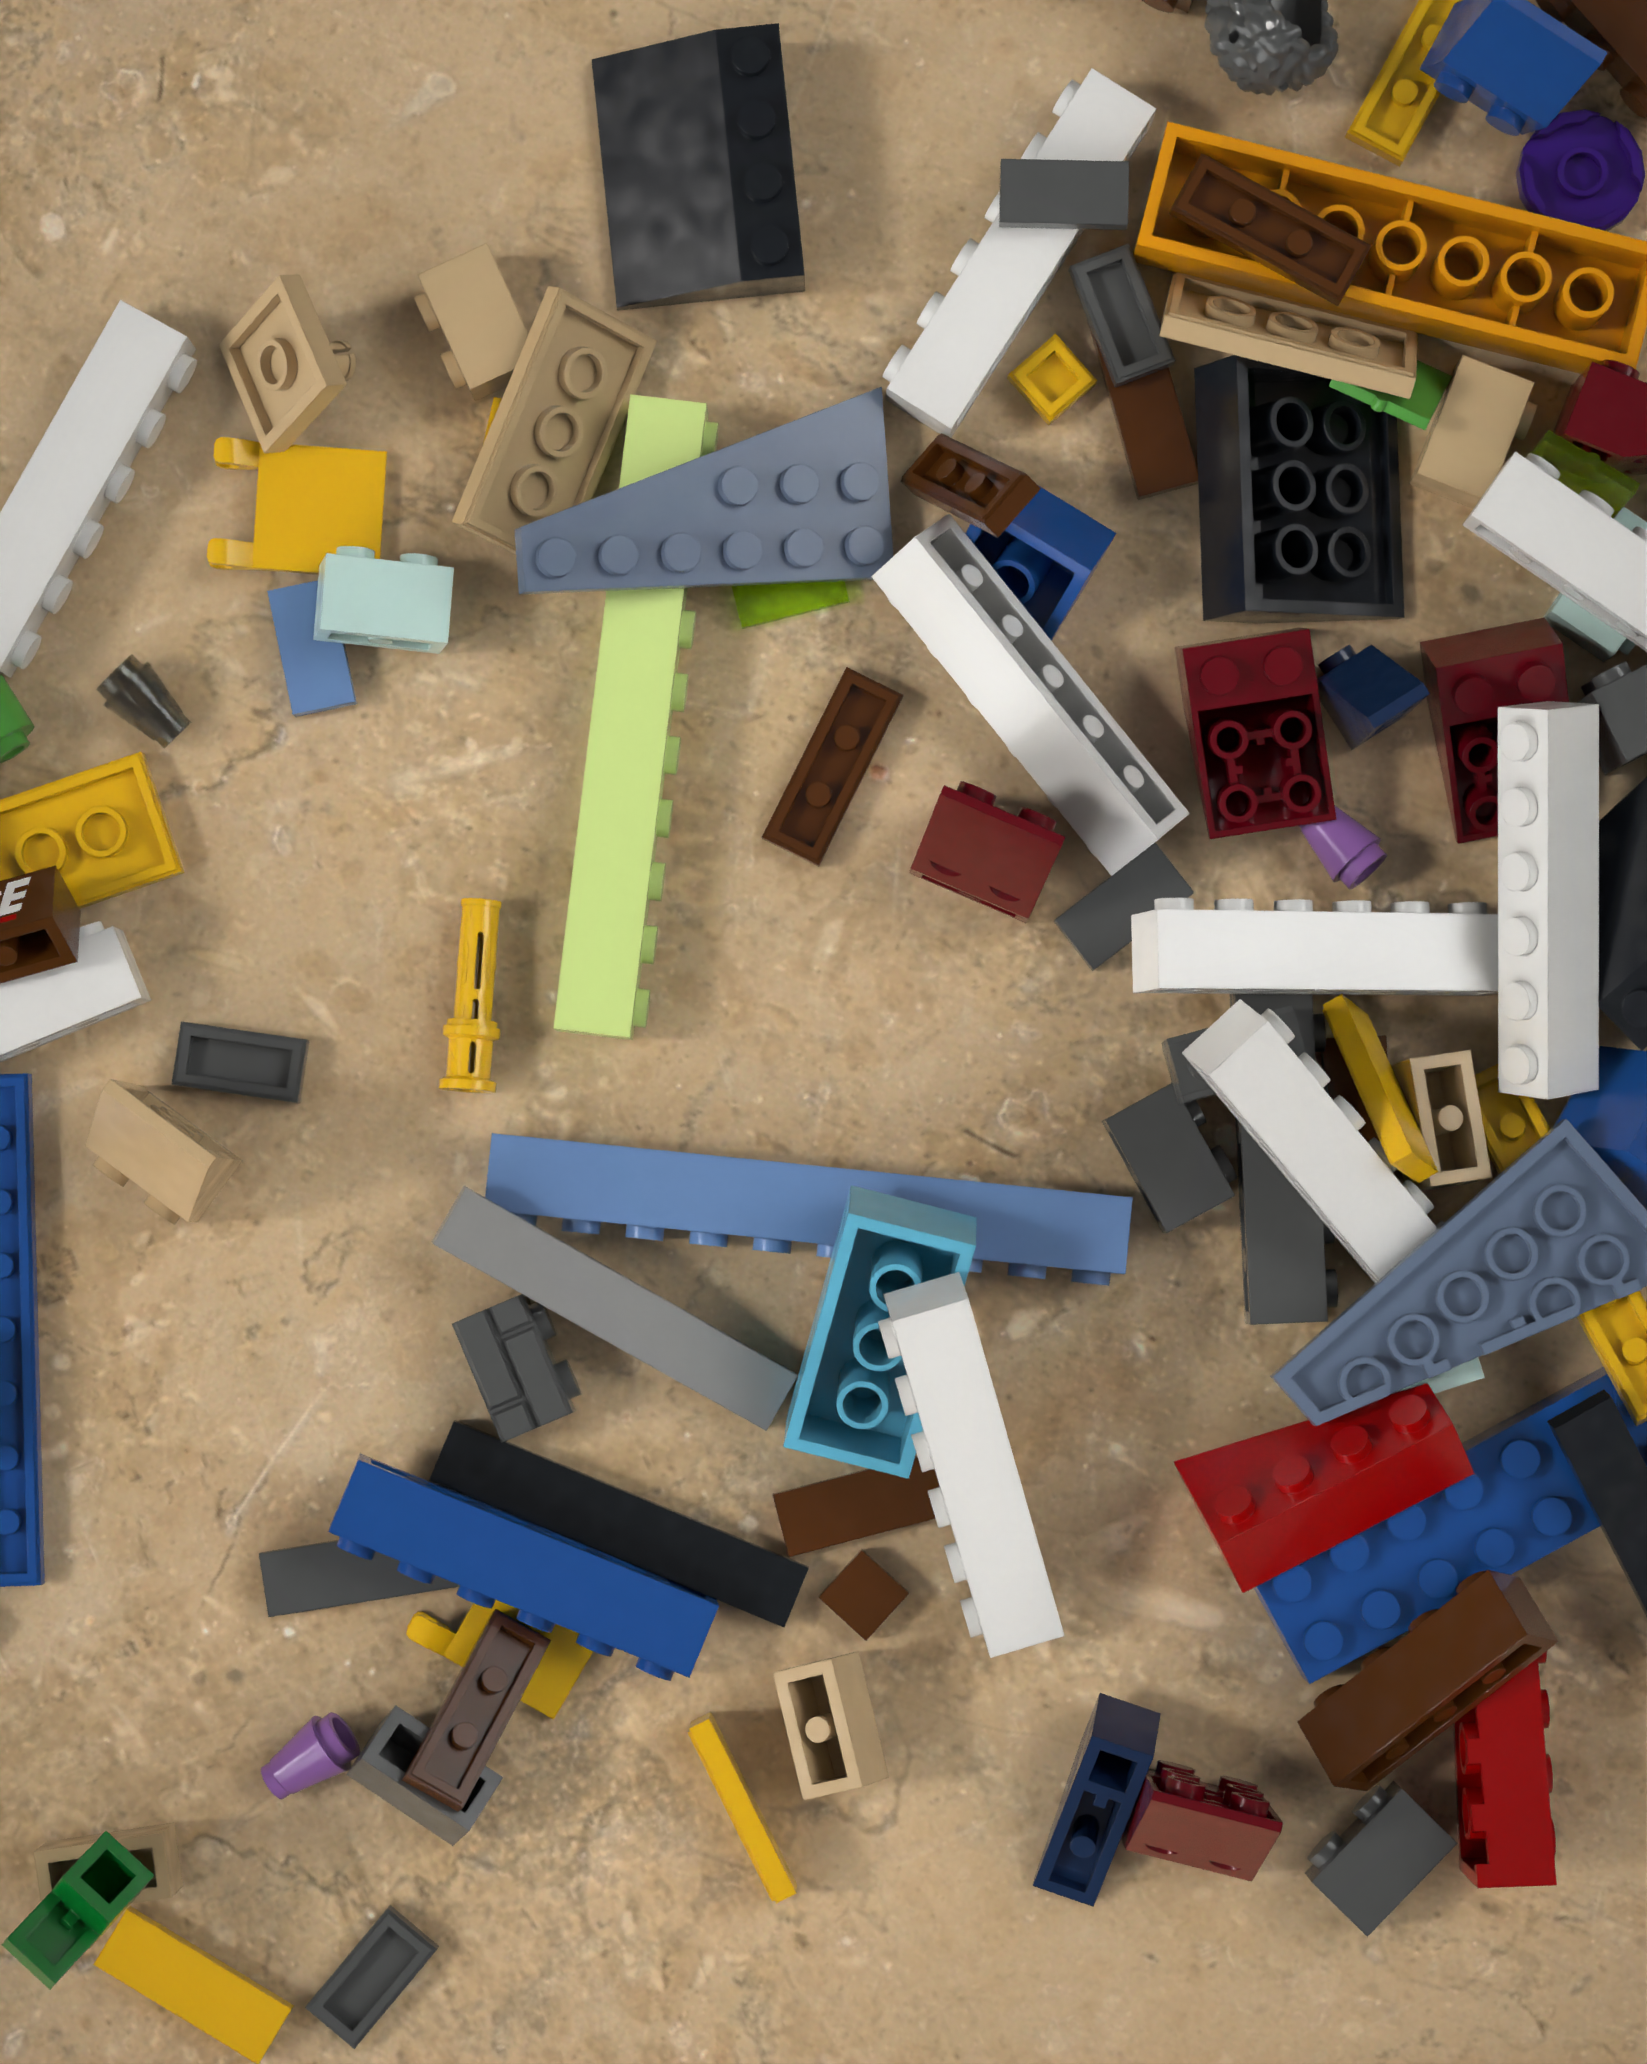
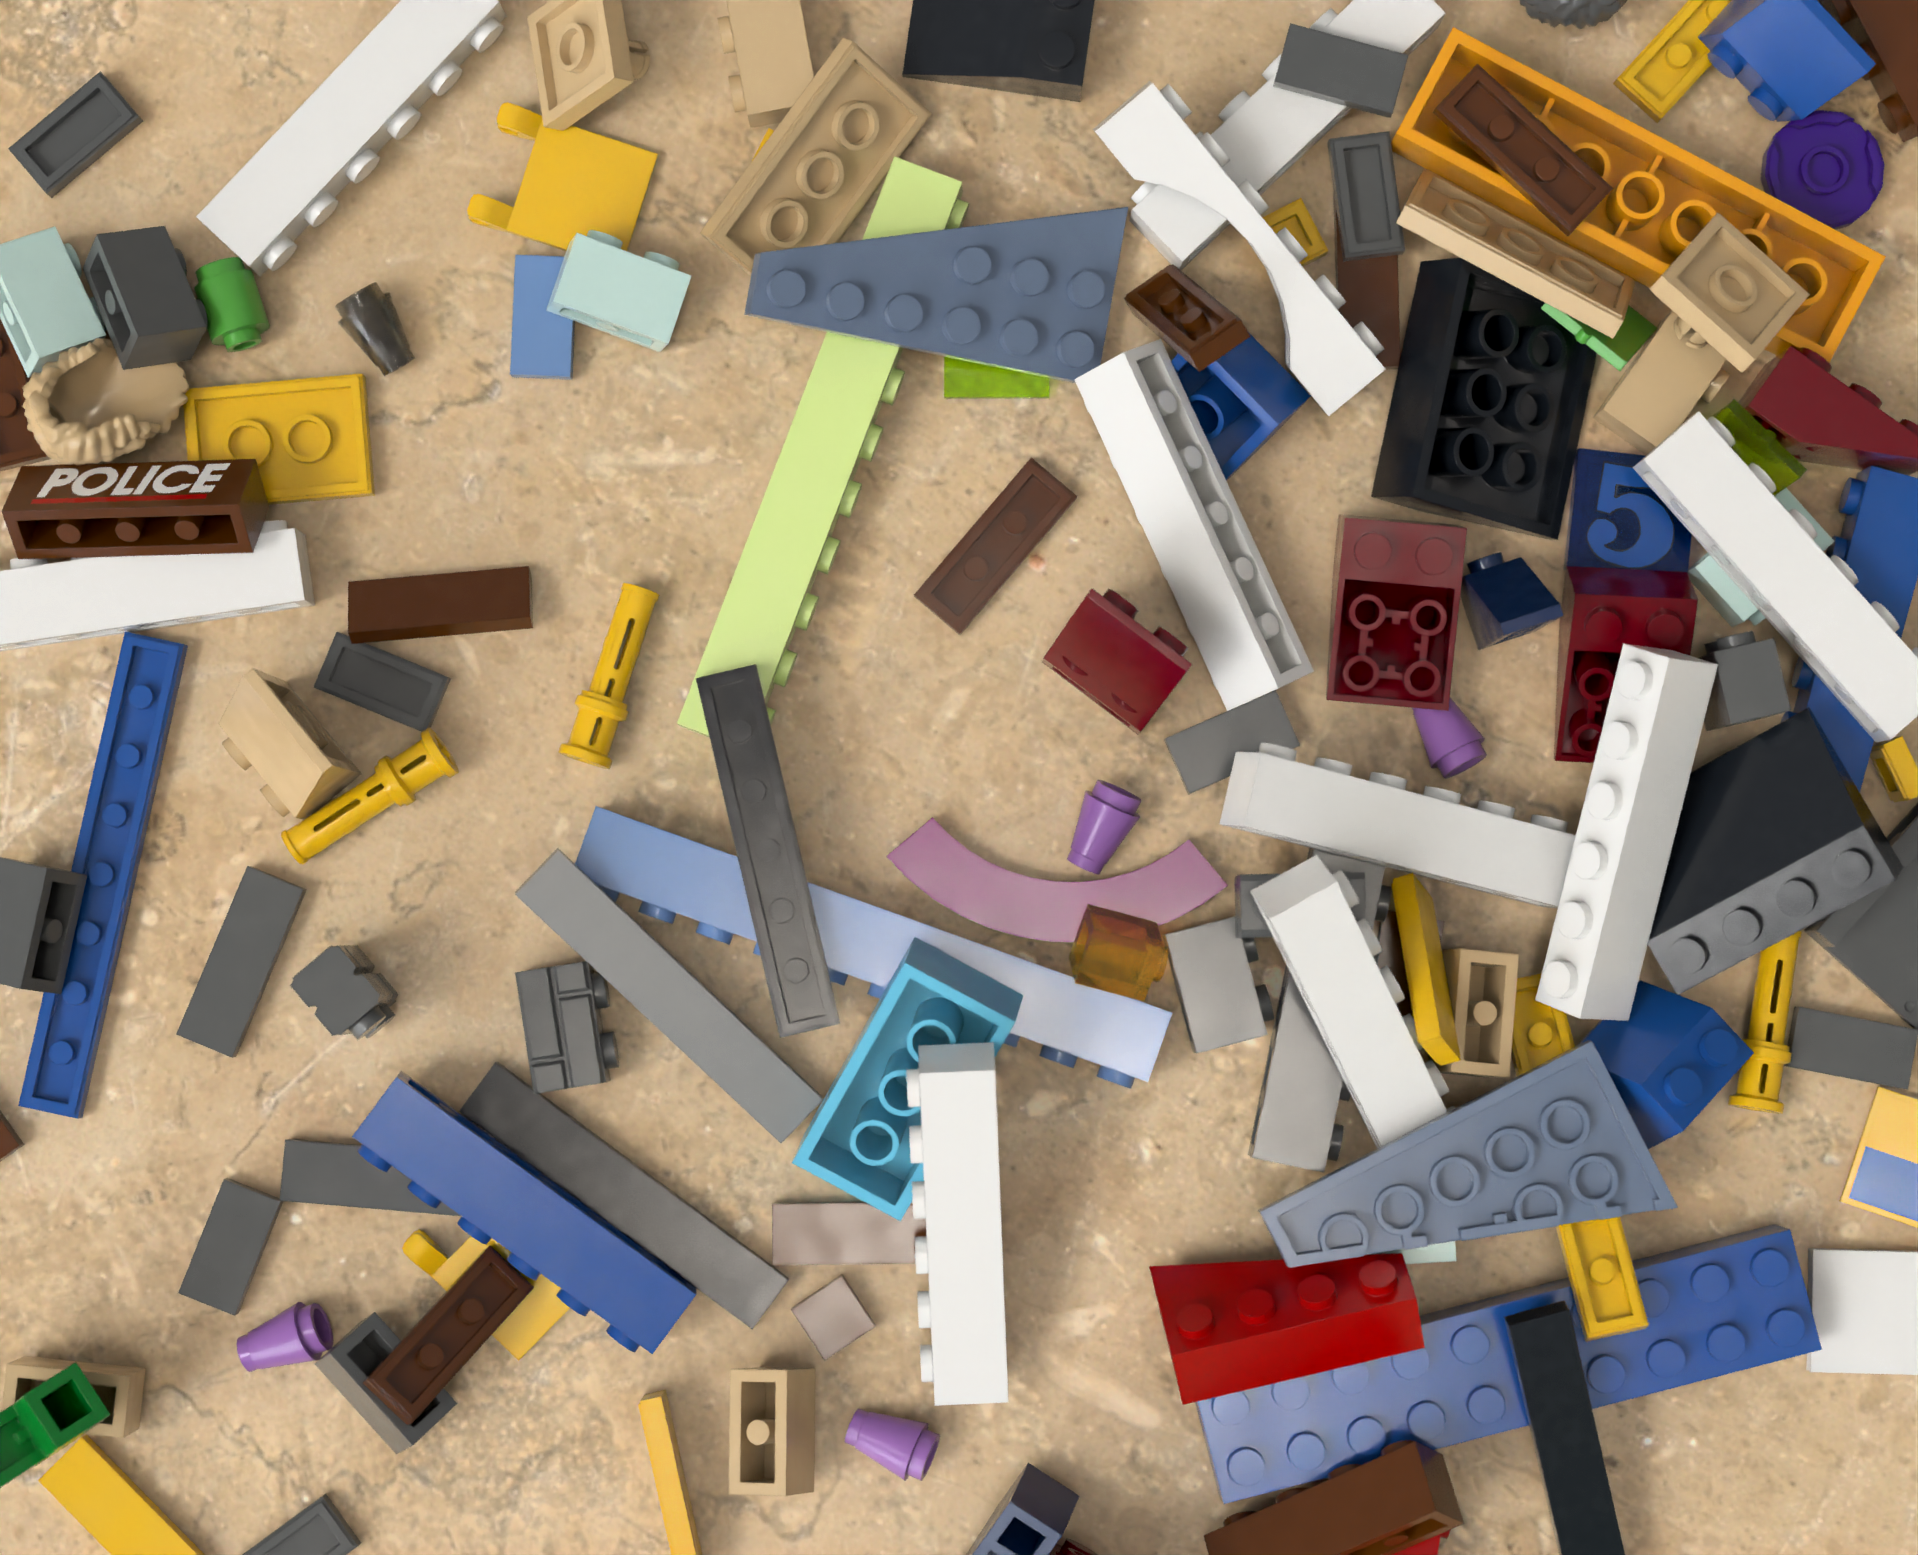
camera: 10 degrees right, 0 degrees up
(168, 1383) = (241, 961): none -> dark grey tile
(230, 1676) = (230, 1246): none -> dark grey tile
(278, 1160) = (394, 782): none -> yellow pin
(280, 968) = (440, 605): none -> reddish brown tile
(284, 1386) = (346, 992): none -> dark grey brick
(679, 1135) = (768, 851): none -> tile
(957, 1706) = (894, 1442): none -> medium lavender cone
(985, 1121) = (1046, 907): none -> tile
(1013, 1024) = (1102, 825): none -> medium lavender cone
(1061, 1150) = (1117, 953): none -> clear yellow brick
(1112, 478) = (1319, 343): none -> white arch
(1462, 580) = (1620, 518): none -> tile
(1515, 324) = (1728, 293): none -> tan tile

